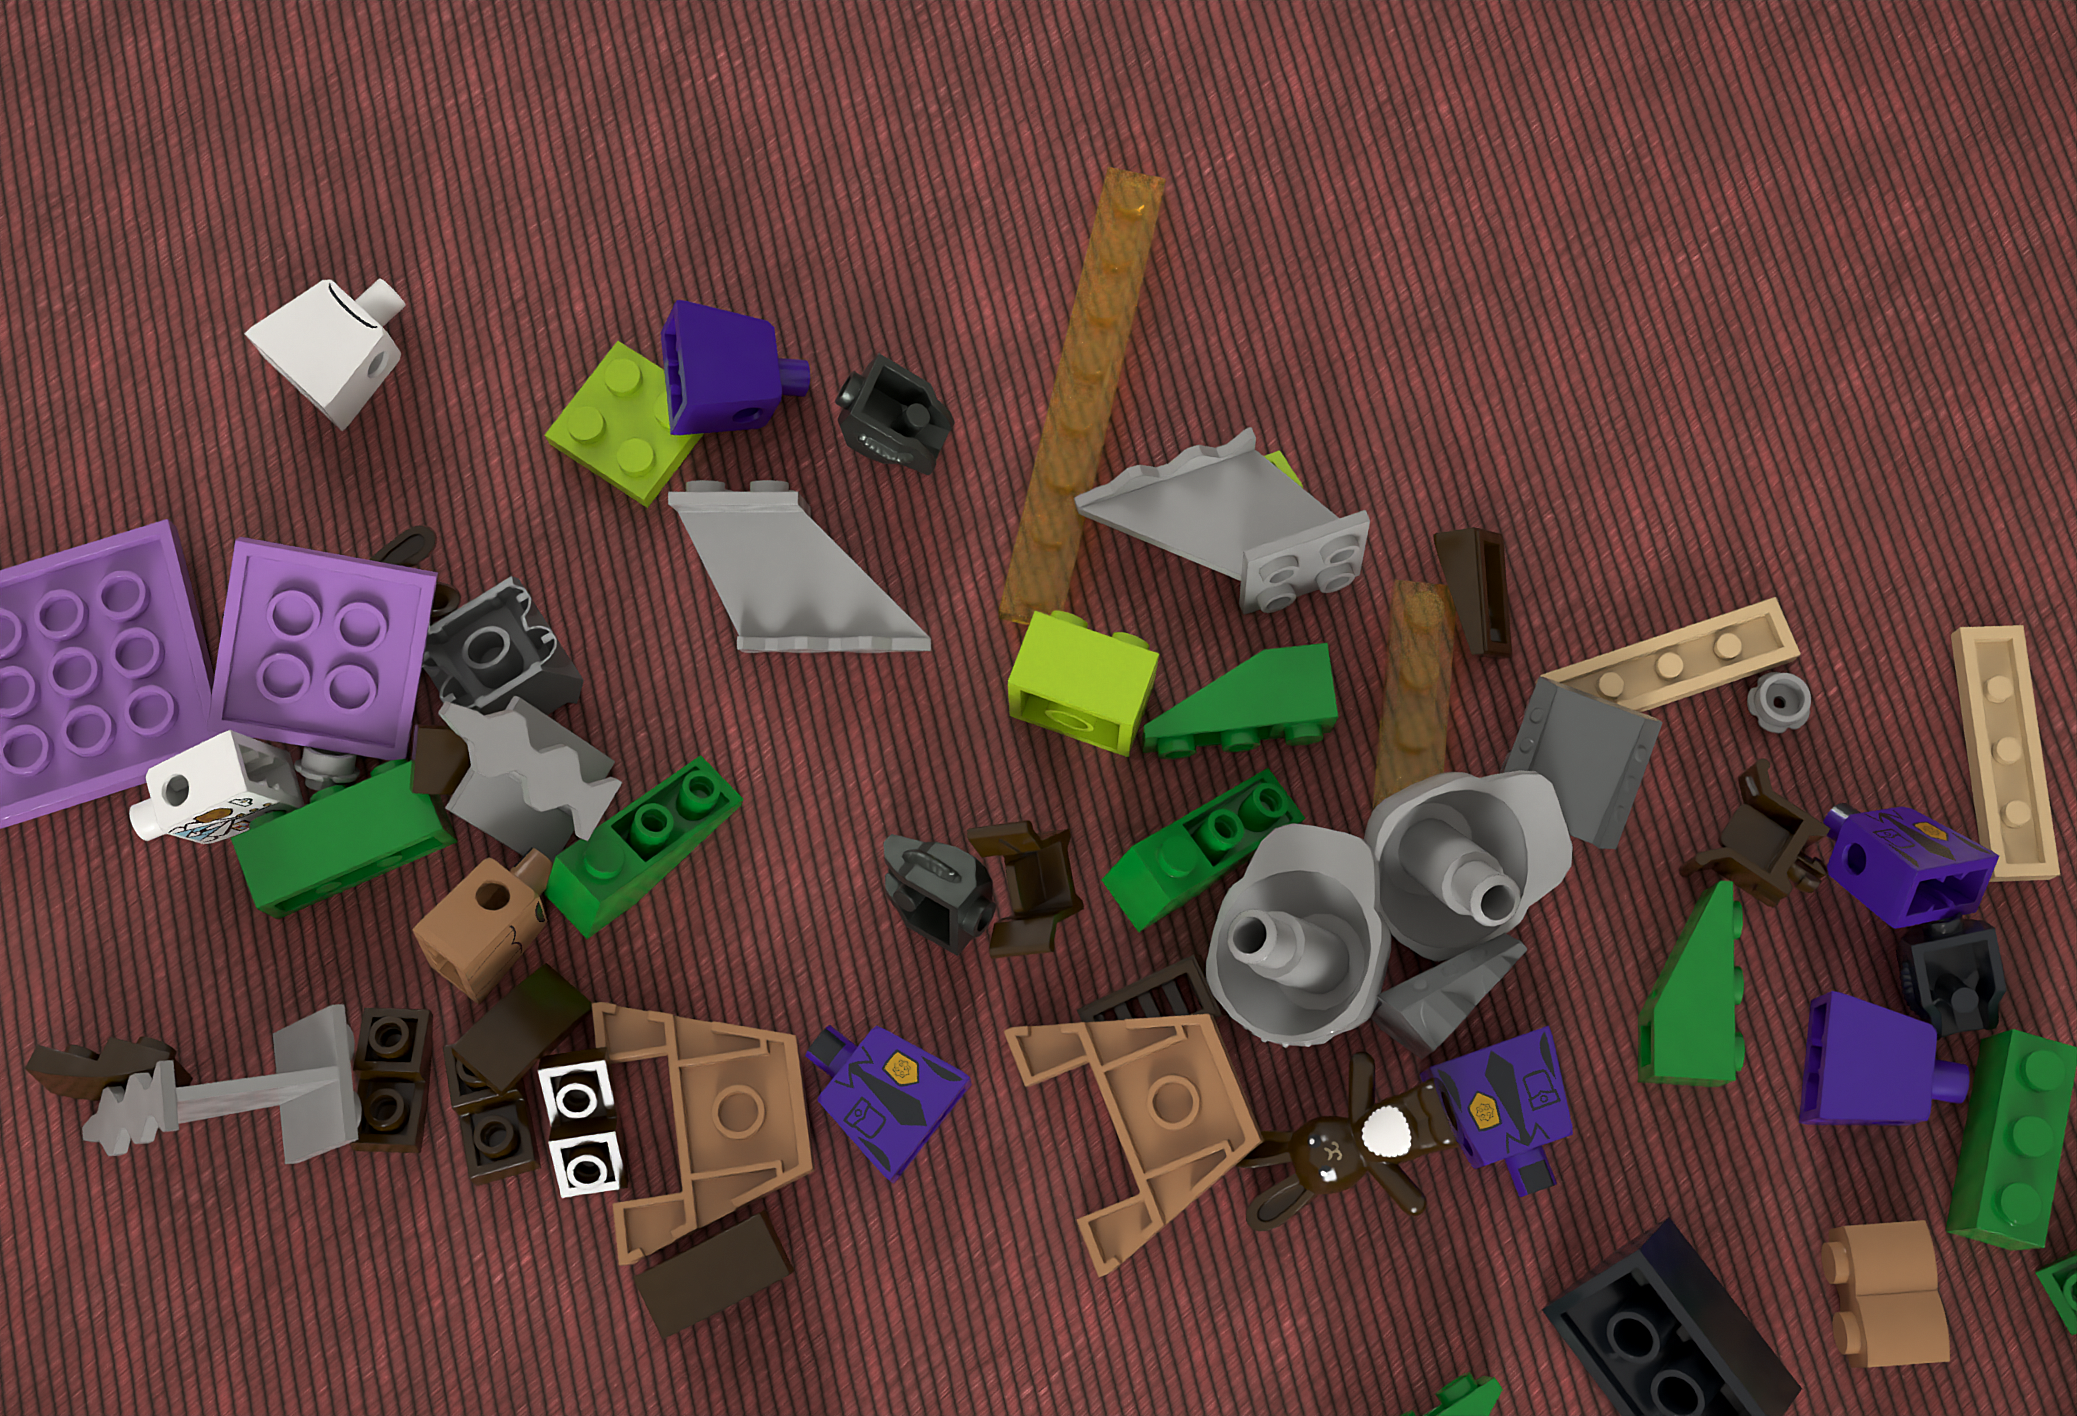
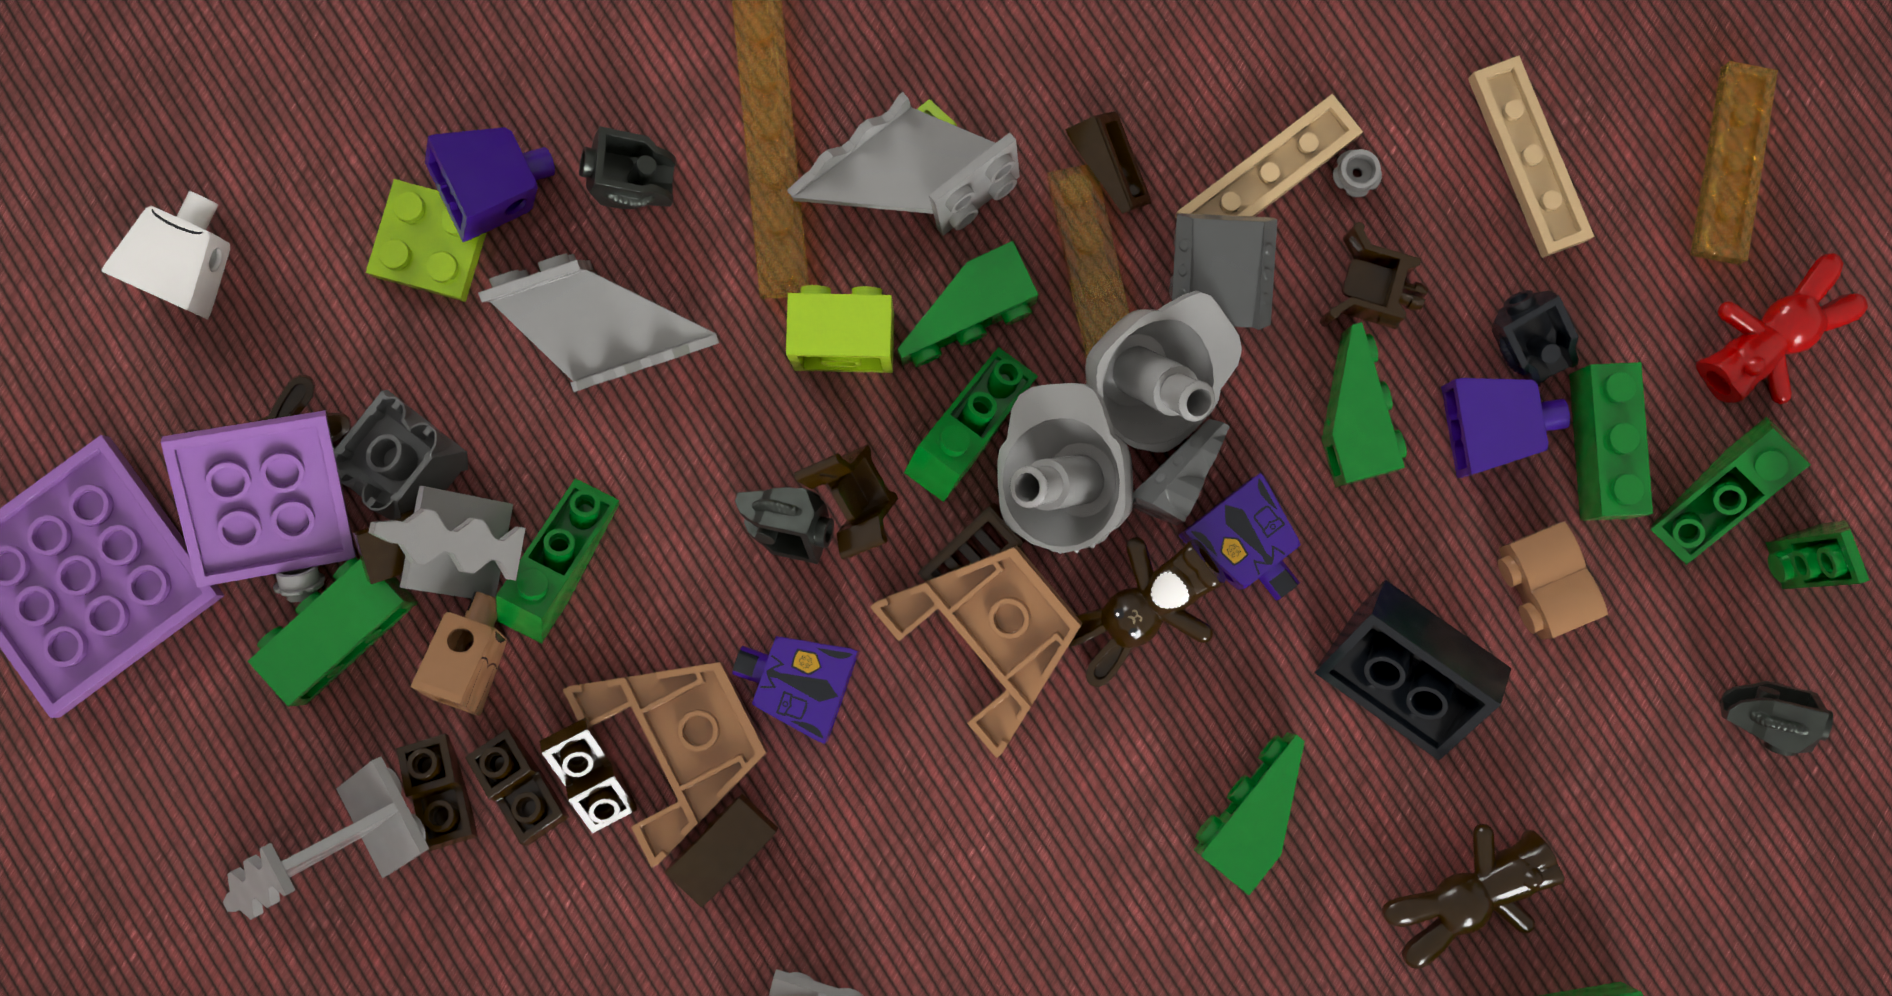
camera: 20 degrees left, 10 degrees up
(85, 1074) = (212, 865): dark brown slope -> none
(216, 789) = (223, 628): white torso -> none
(522, 1029) = (518, 725): dark brown slope -> none
(1906, 864) = (1482, 267): dark purple torso -> none

